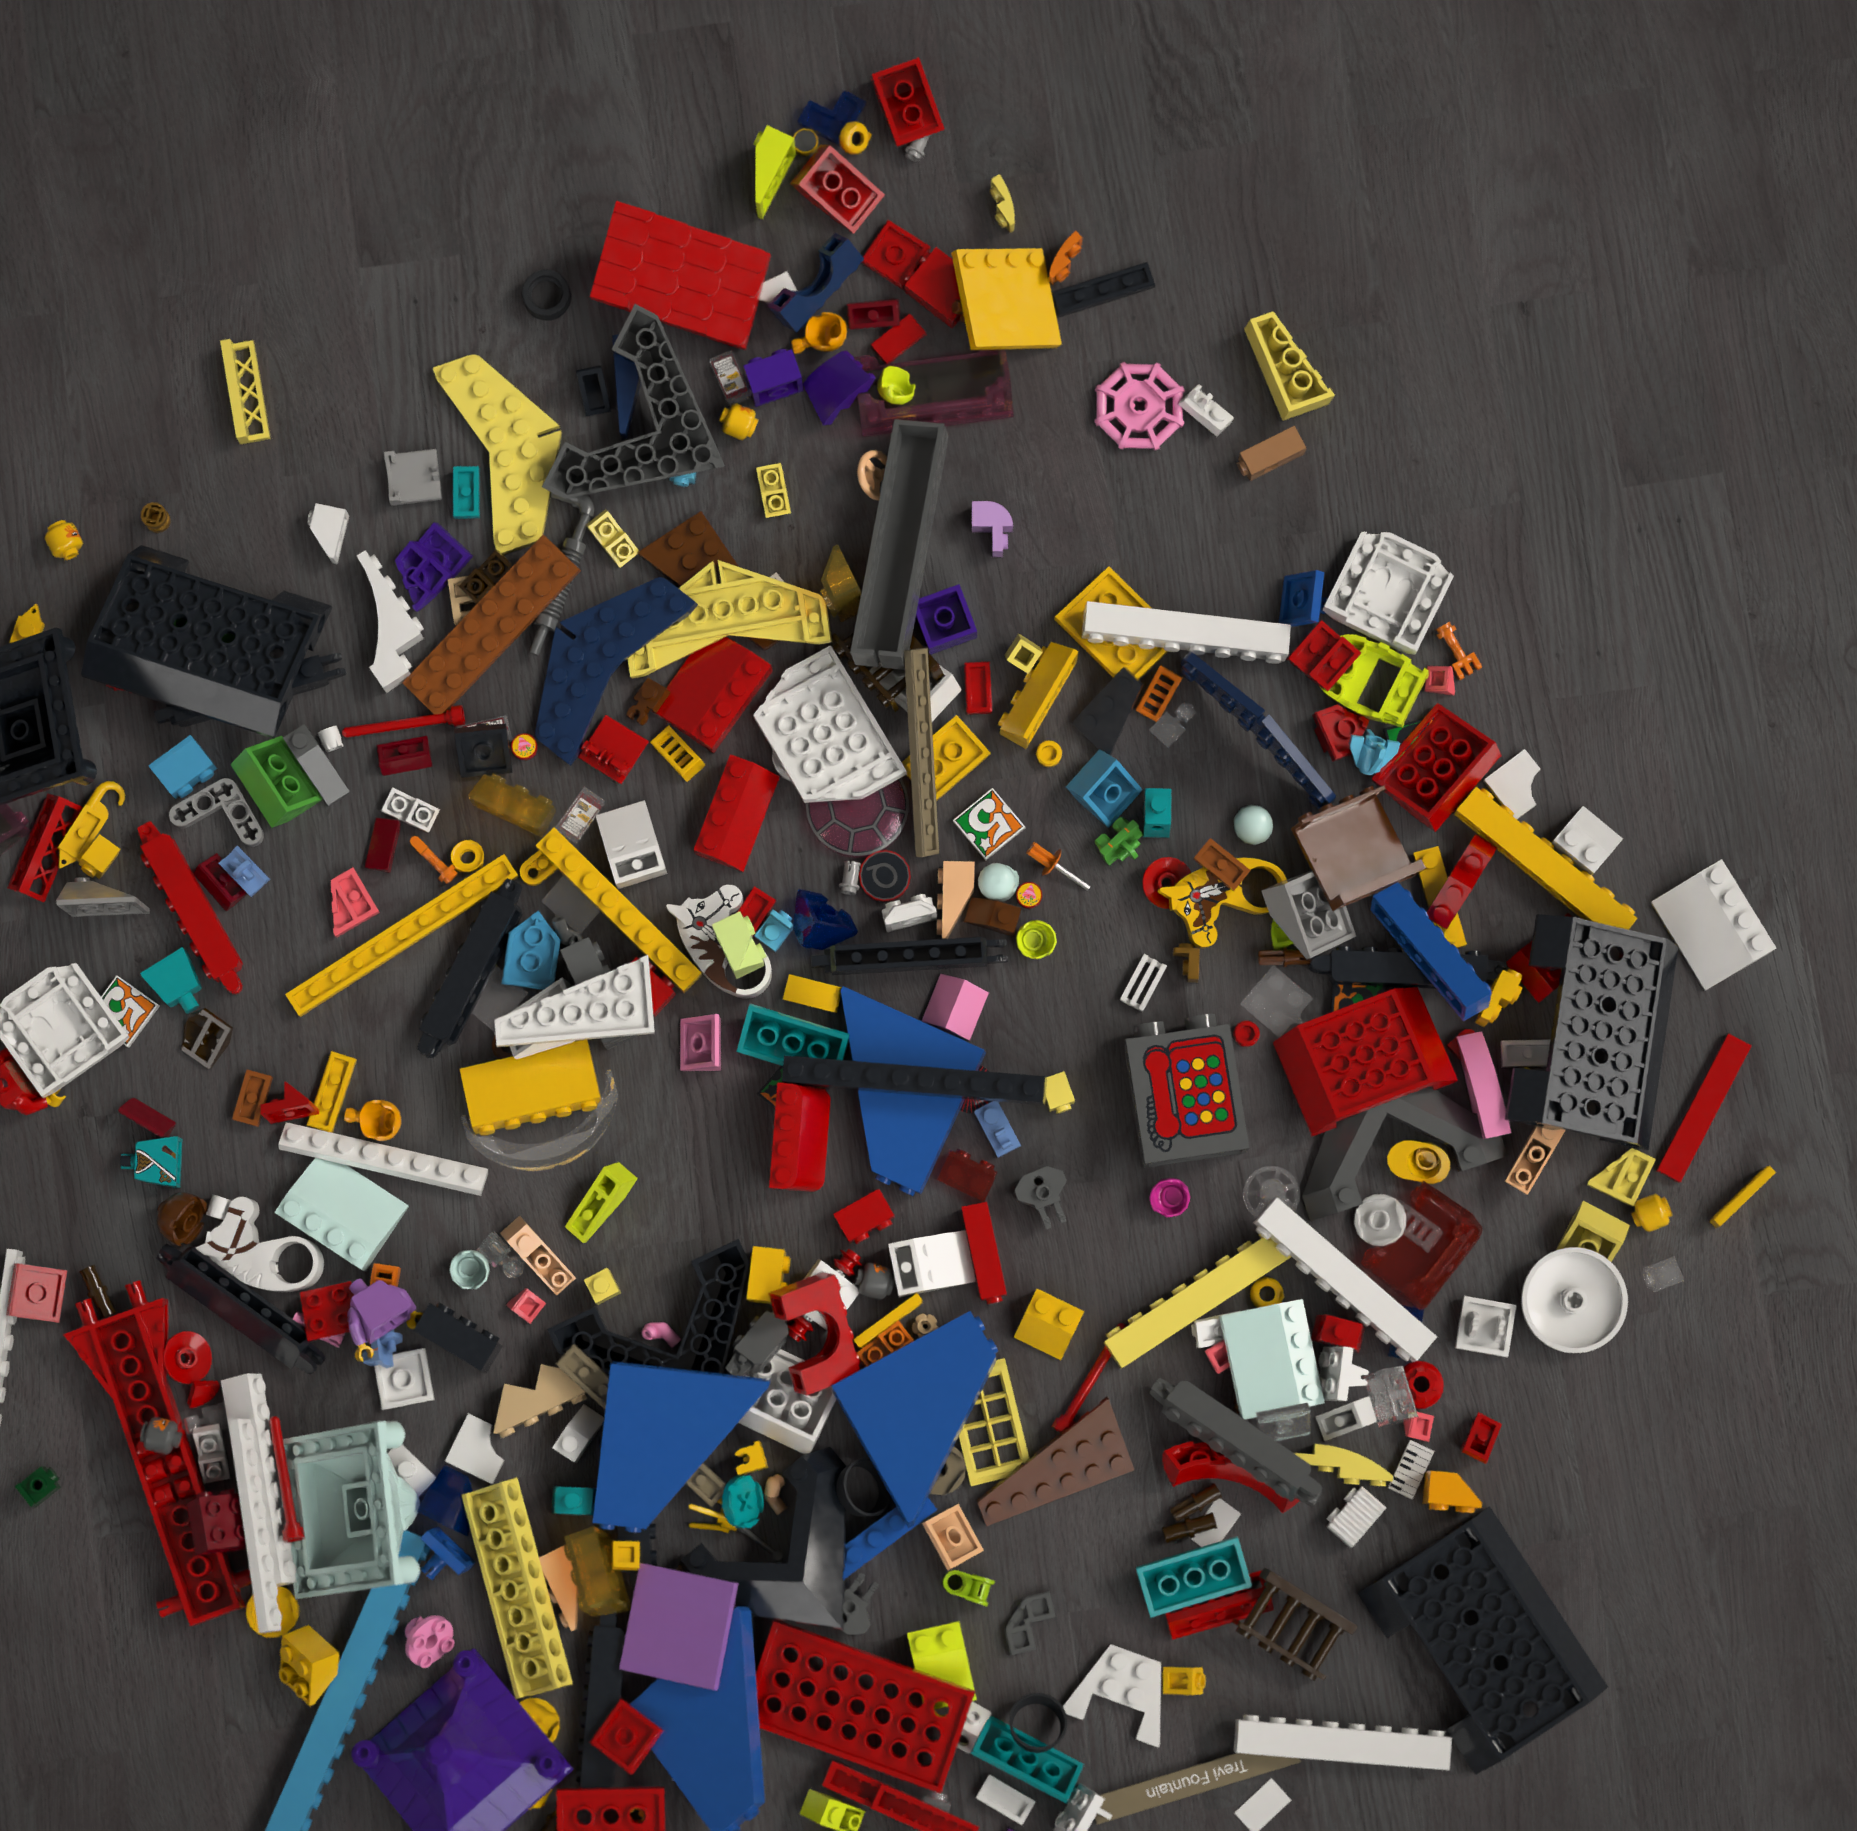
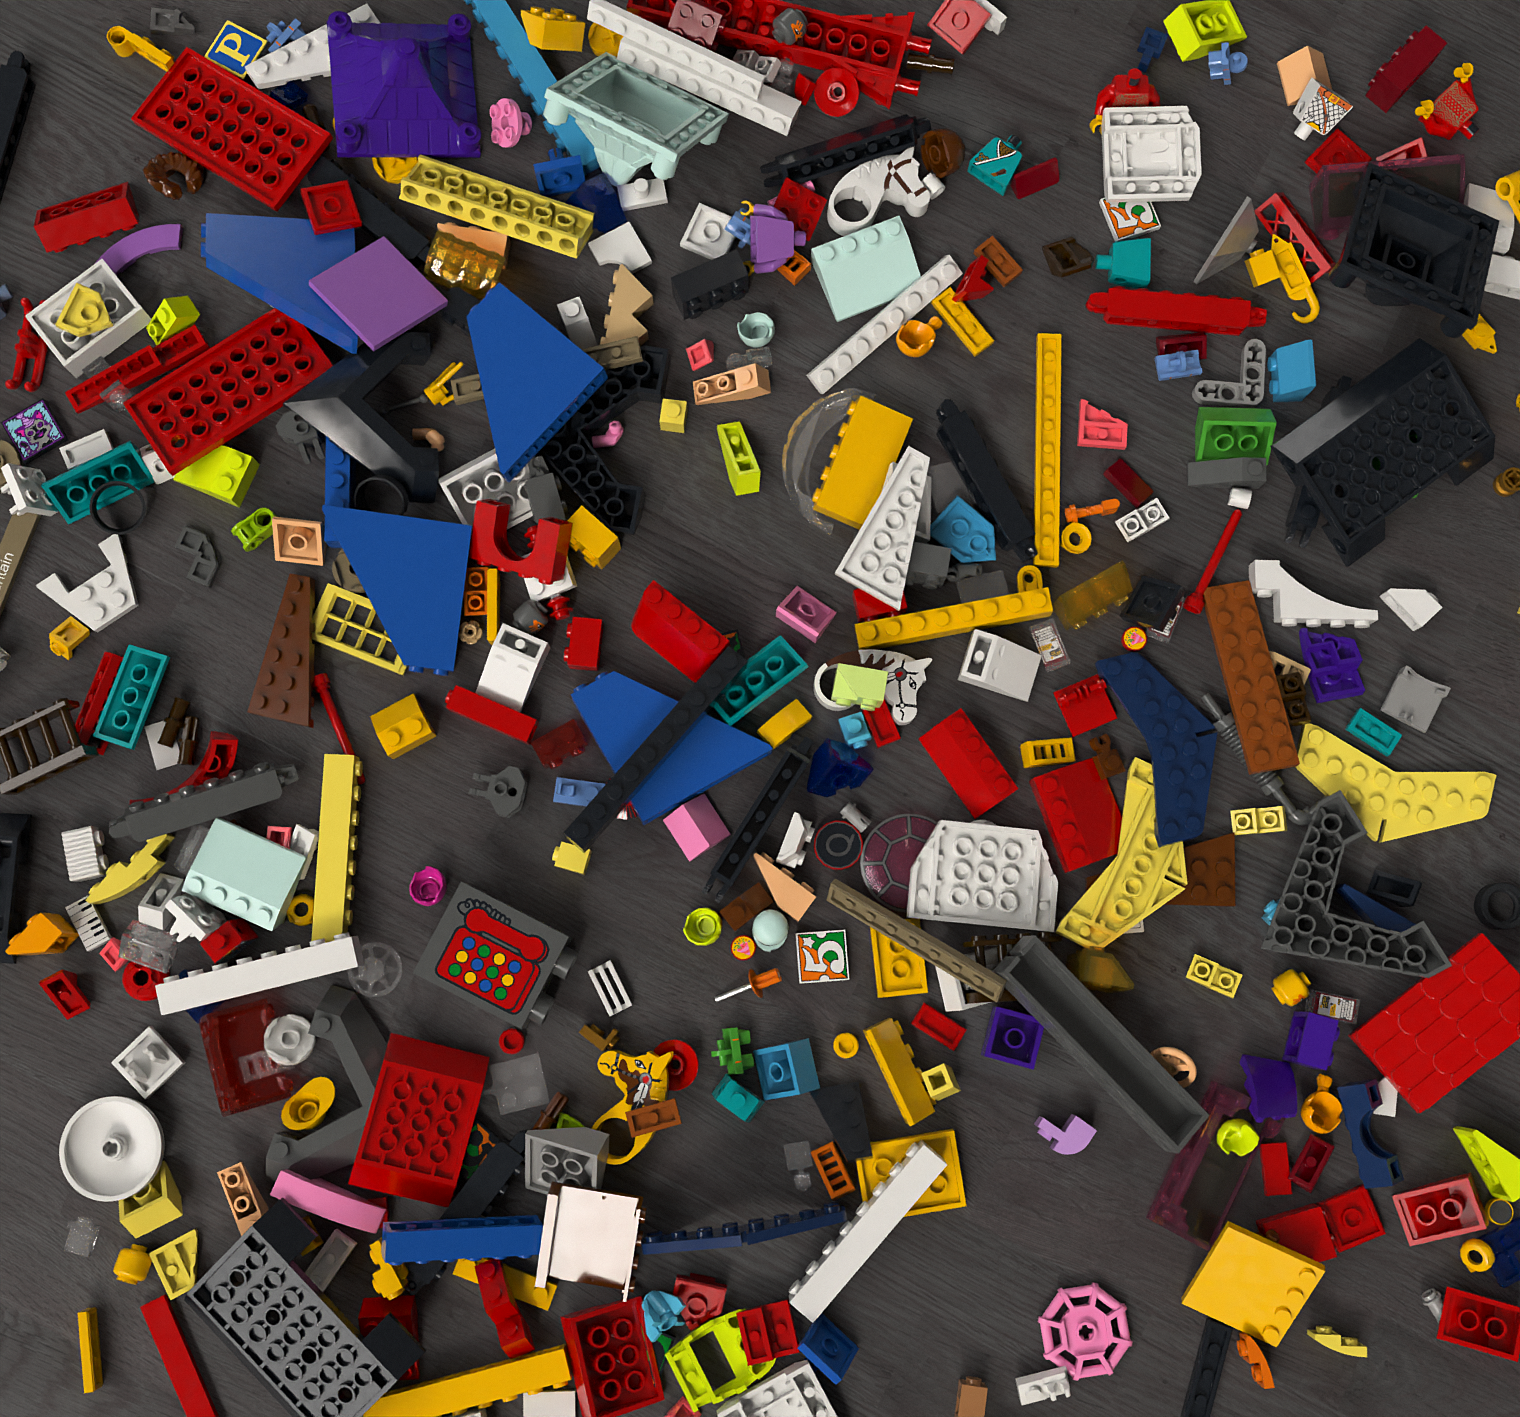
camera: 120 degrees right, 0 degrees up
(292, 1530) = (654, 75): red piece -> none
(404, 755) = (1189, 545): dark red slope -> none
(573, 1500) = (531, 287): teal torso -> none
(625, 1555) = (460, 293): yellow plate -> none
(742, 1501) = (439, 406): teal tile -> none
(756, 1459) = (460, 434): yellow hinge -> none
(1253, 824) = (673, 1170): light aqua hair -> none

